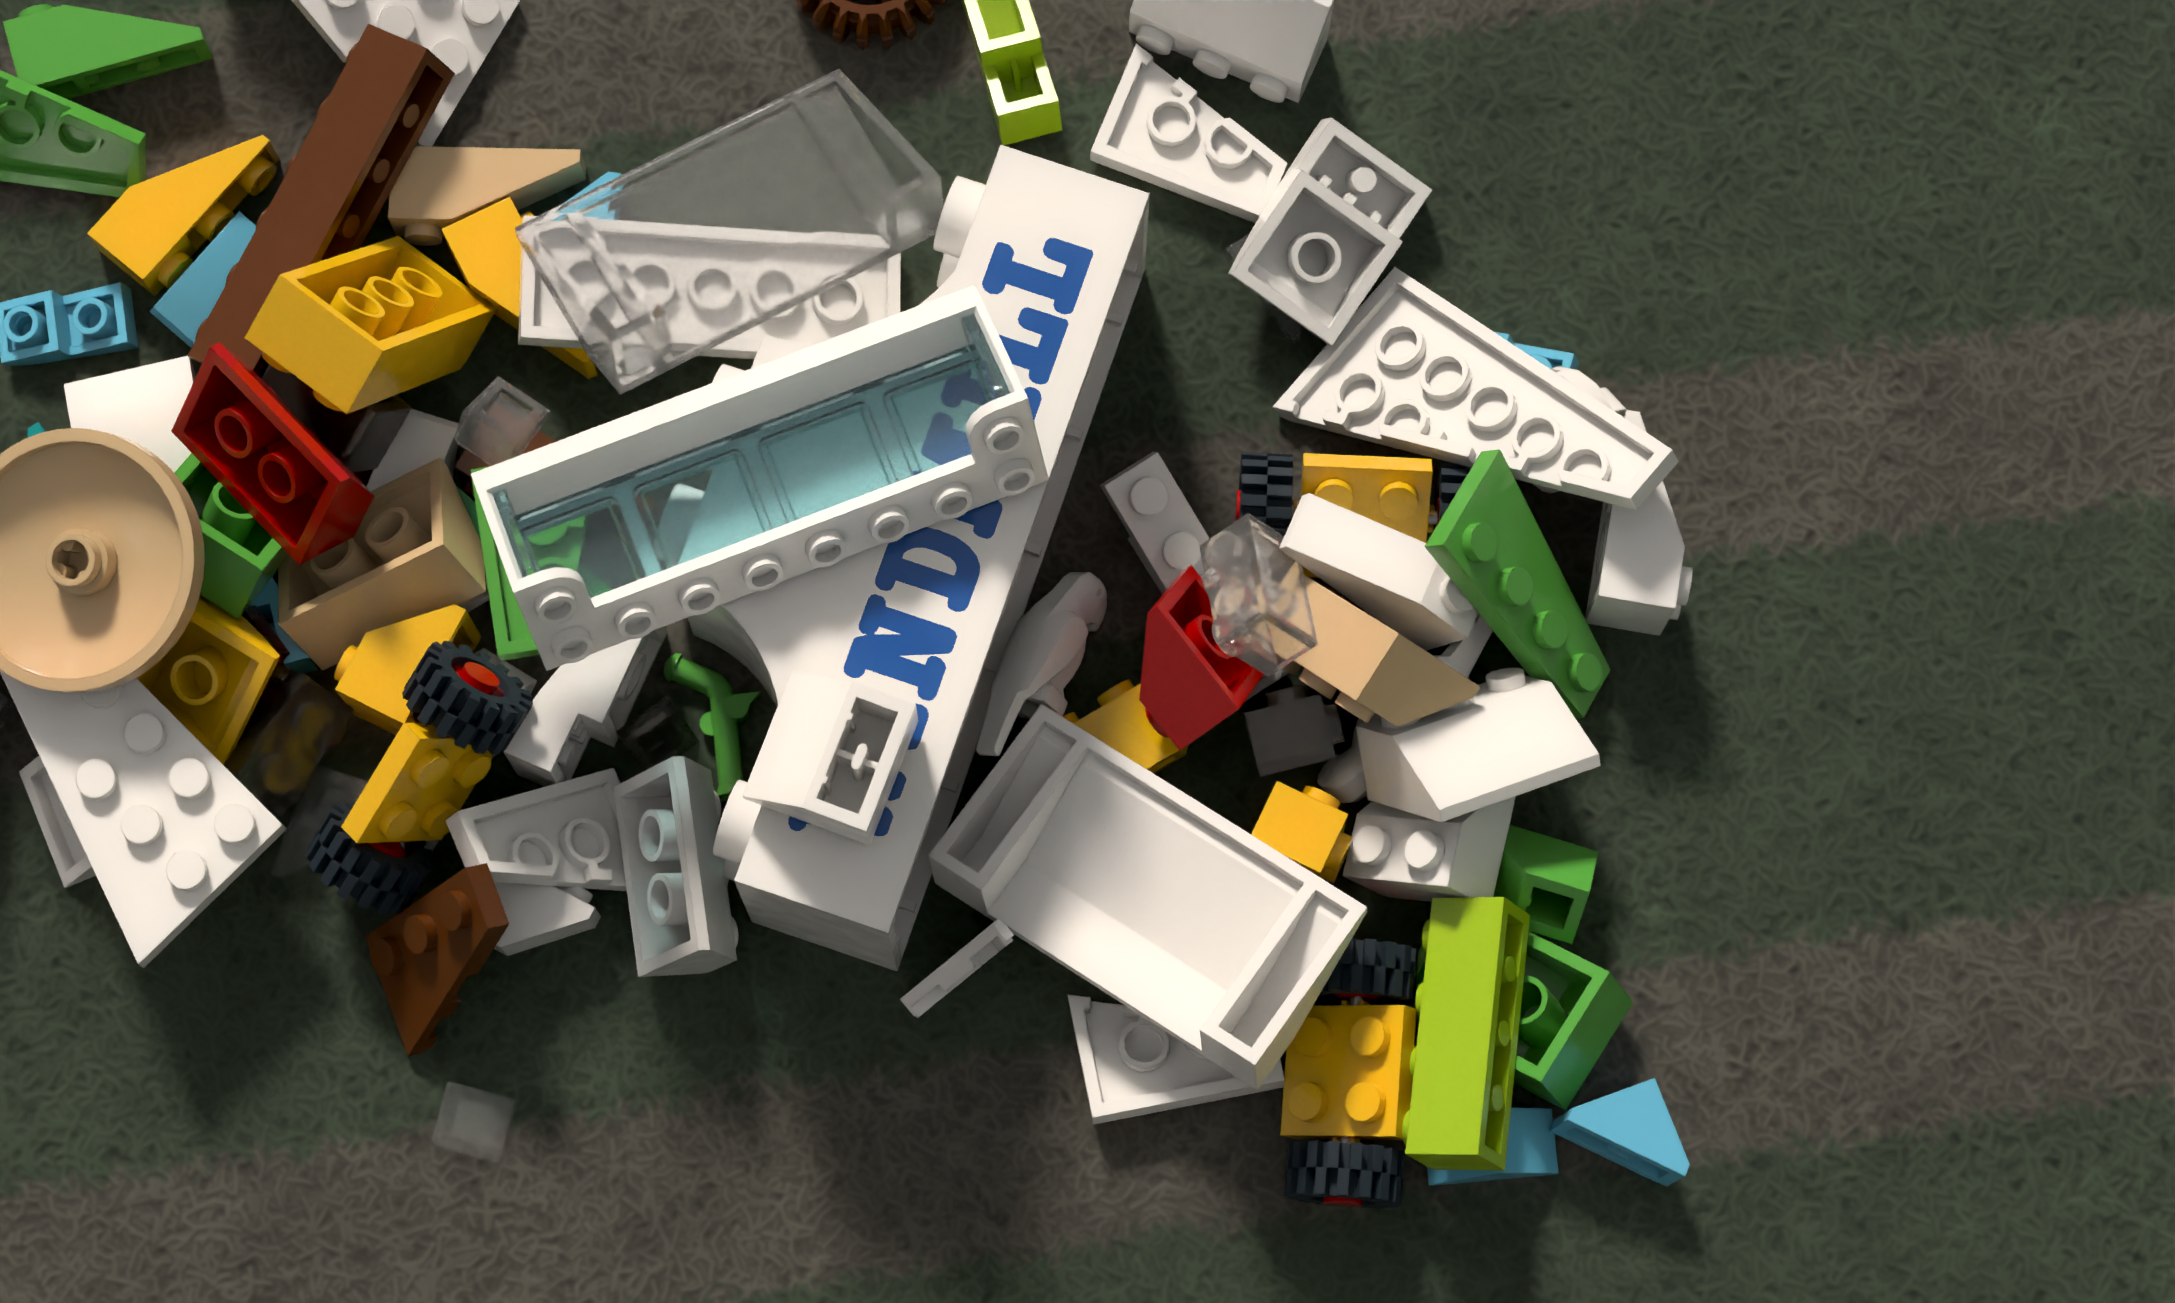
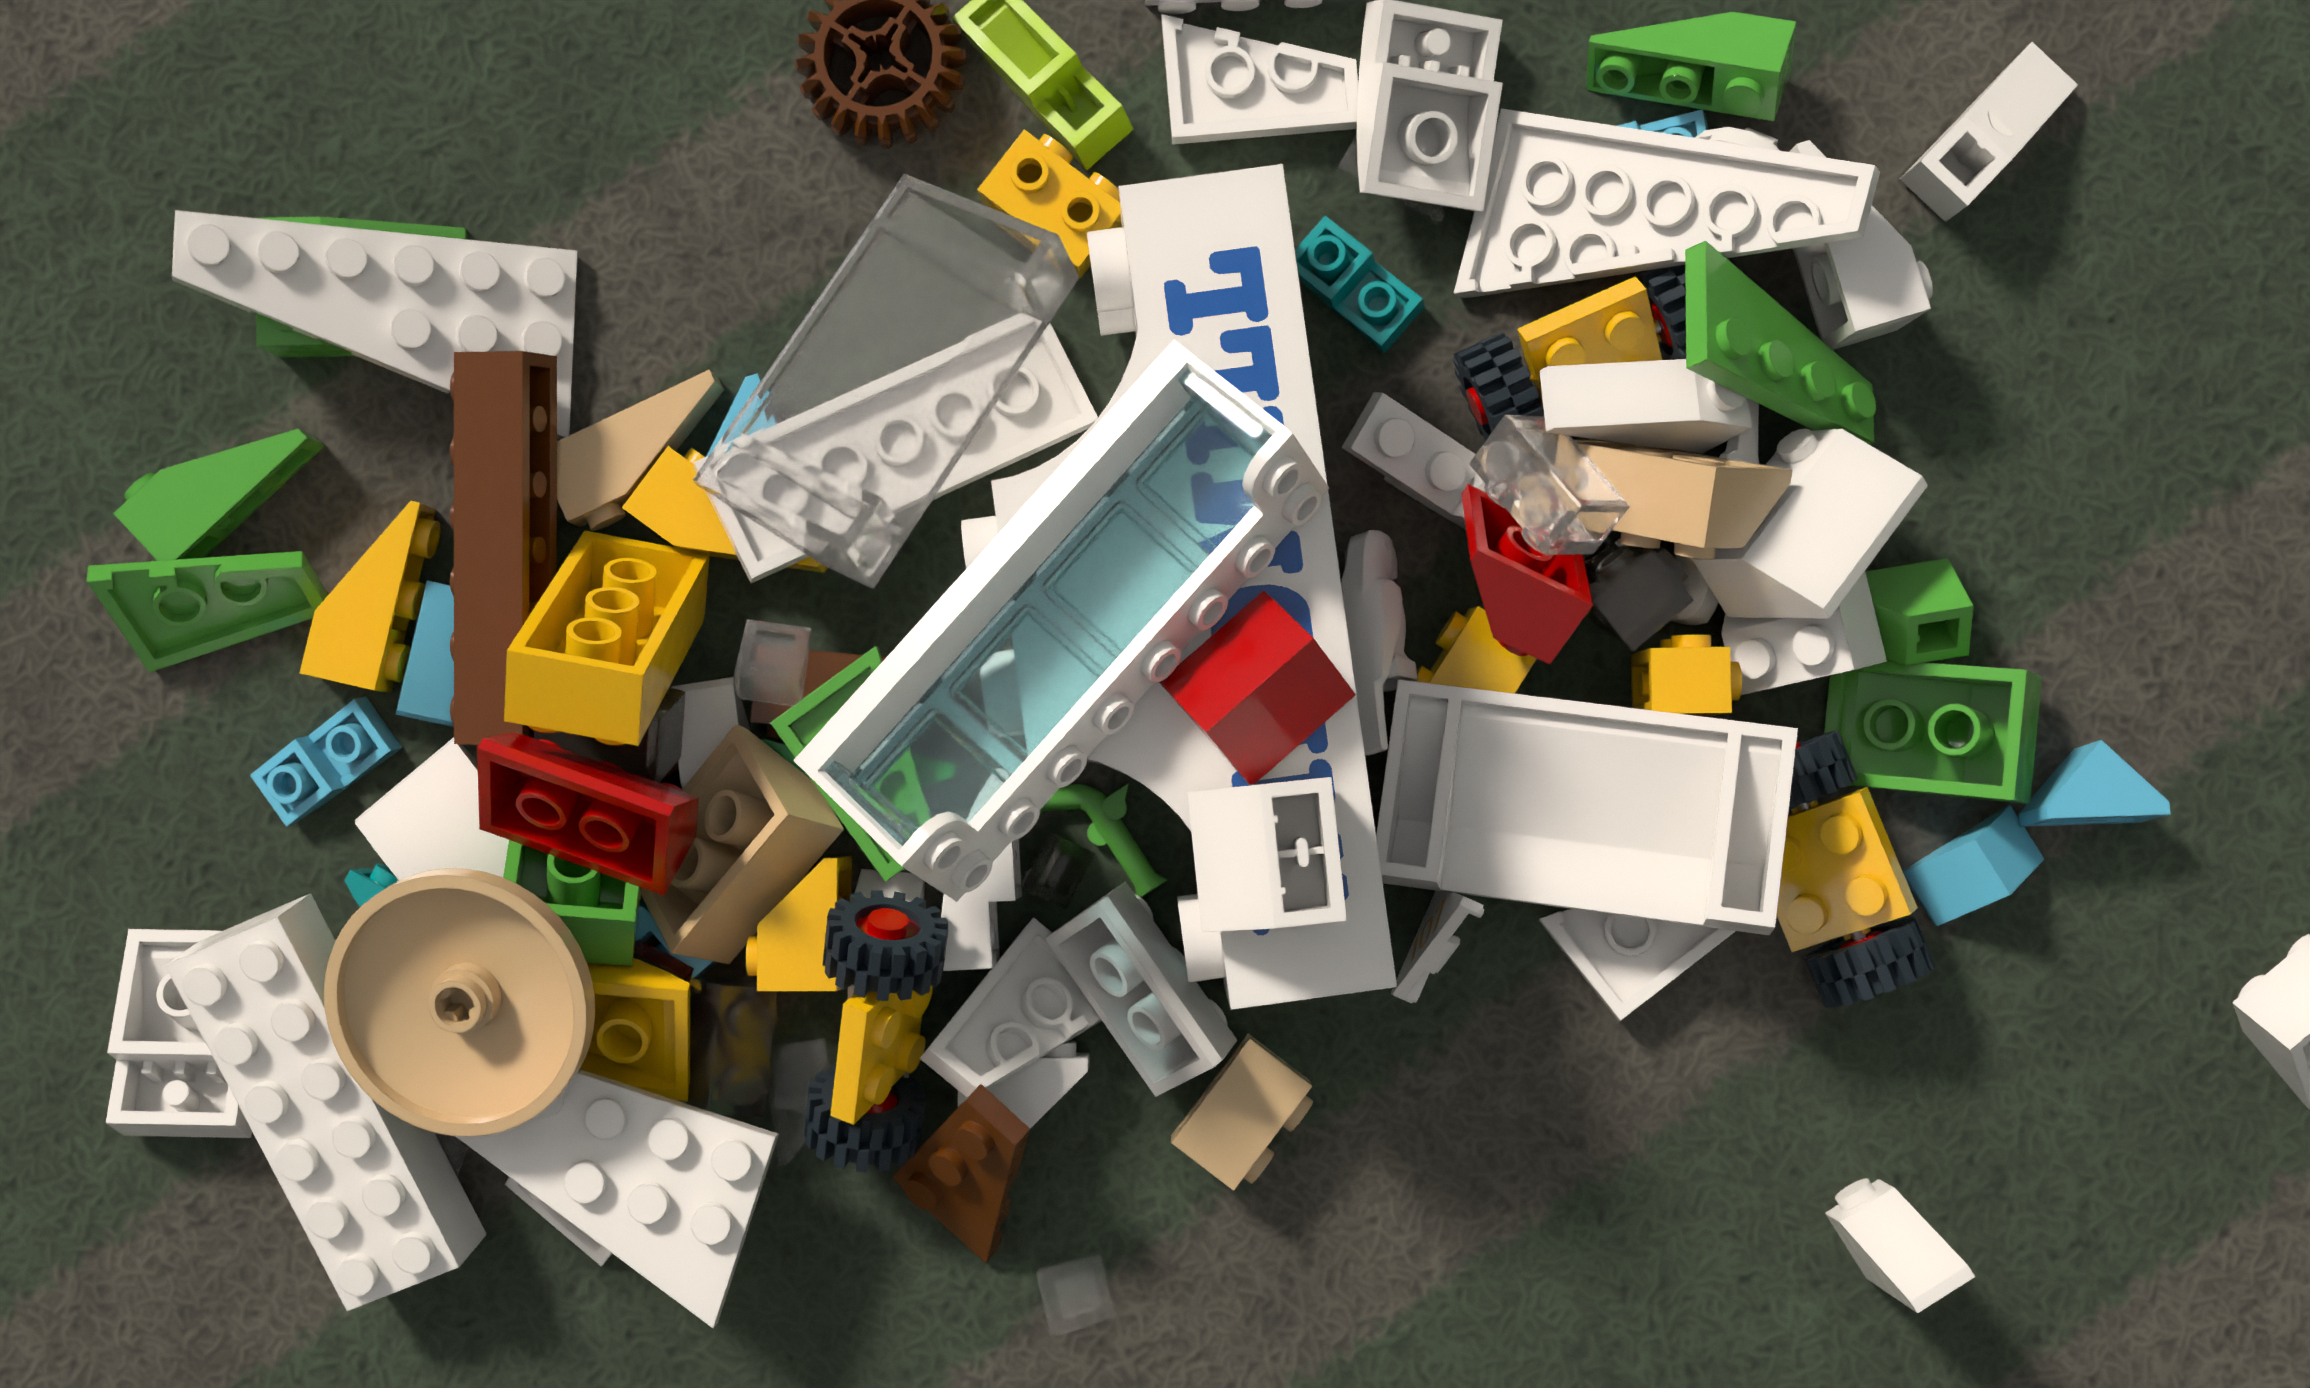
camera: 20 degrees left, 10 degrees up
(708, 1029) = (1243, 1113): none -> tan brick
(900, 616) = (1258, 687): none -> red slope
(951, 134) = (1045, 190): none -> yellow brick
(1189, 357) = (1355, 285): none -> teal slope
(1466, 1033) = (1924, 788): lime brick -> none
(1592, 312) = (1705, 63): none -> bright green slope
(1823, 496) = (1989, 133): none -> white slope

